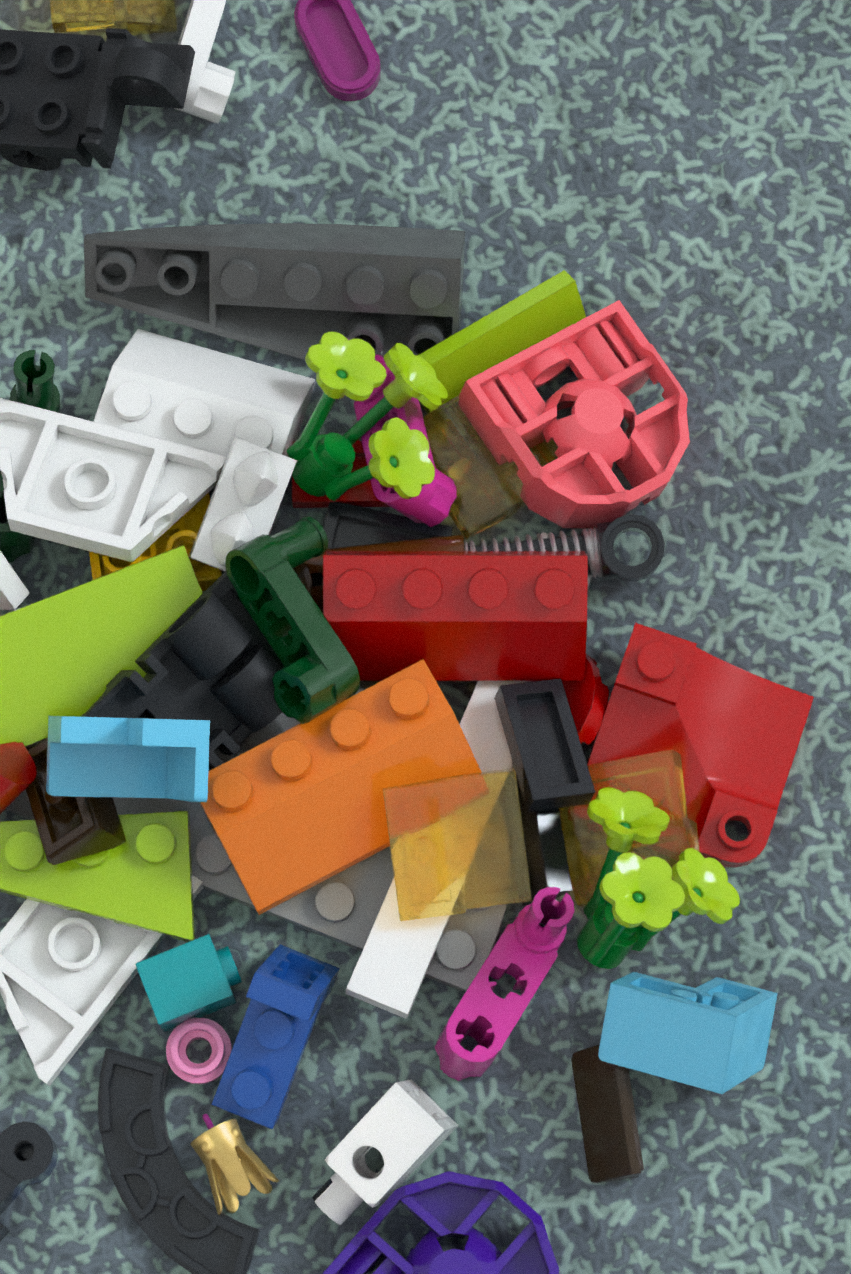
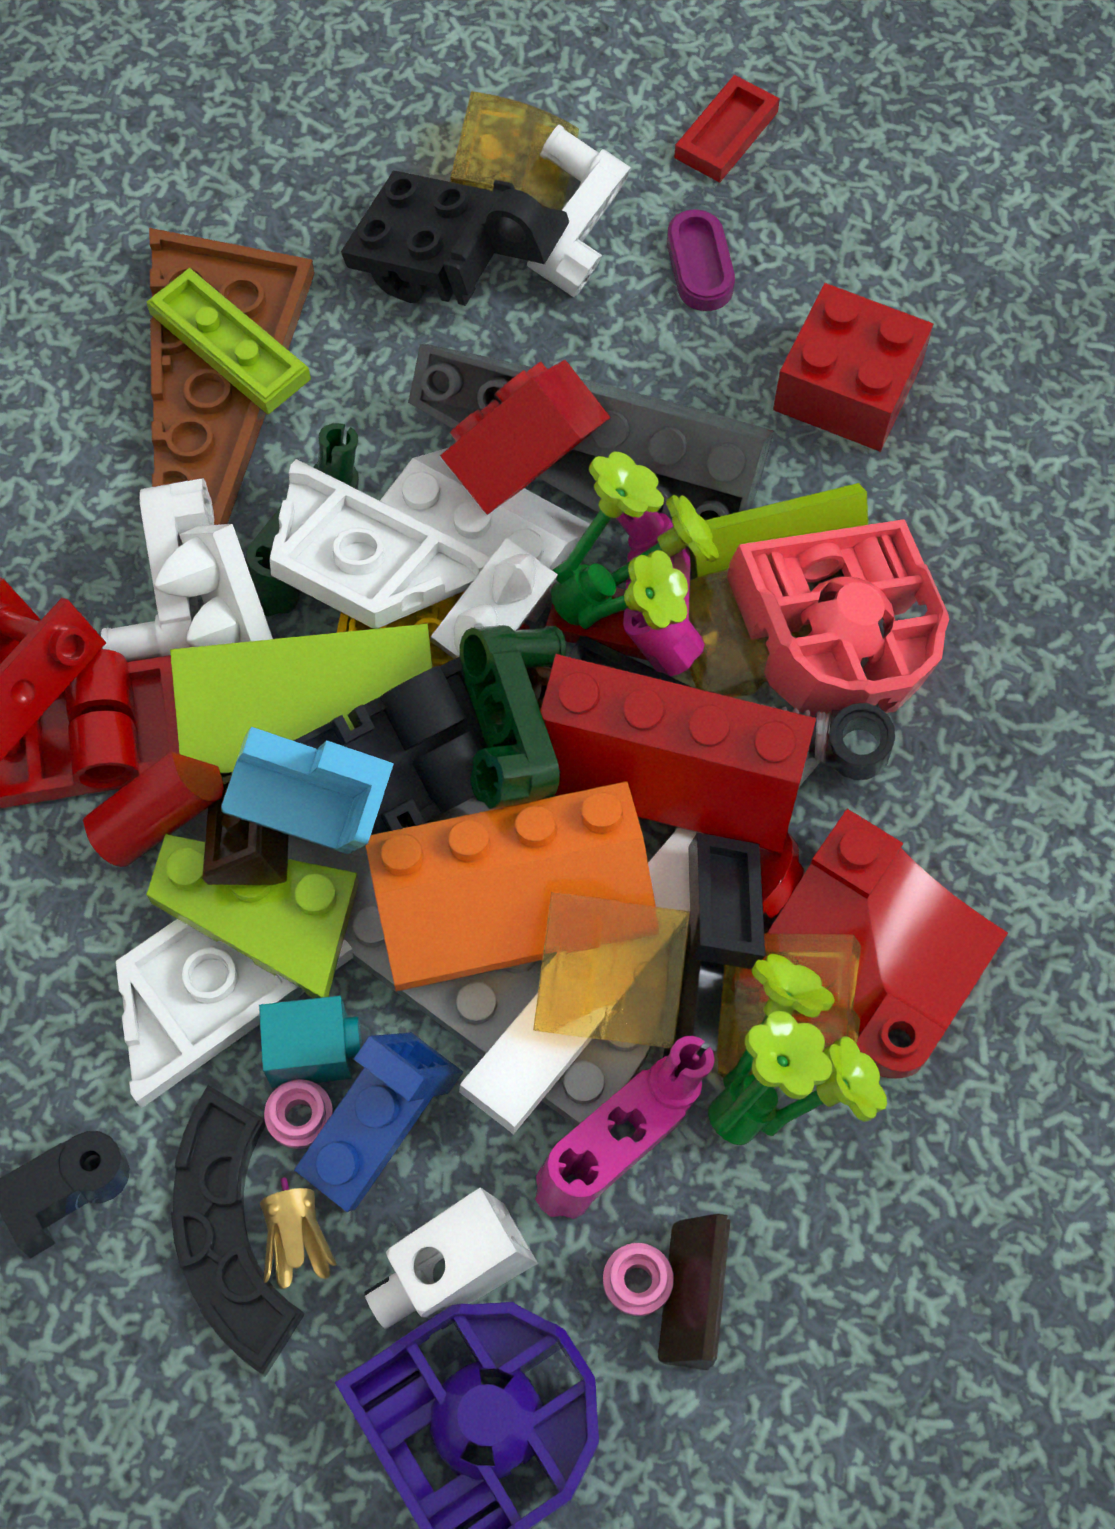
camera: 15 degrees right, 10 degrees down
(223, 320) = (516, 441): none -> red brick
(526, 136) = (852, 366): none -> red brick
(560, 1095) = (644, 1257): none -> bright pink plate
(686, 1033) = (800, 1227): medium azure panel -> none

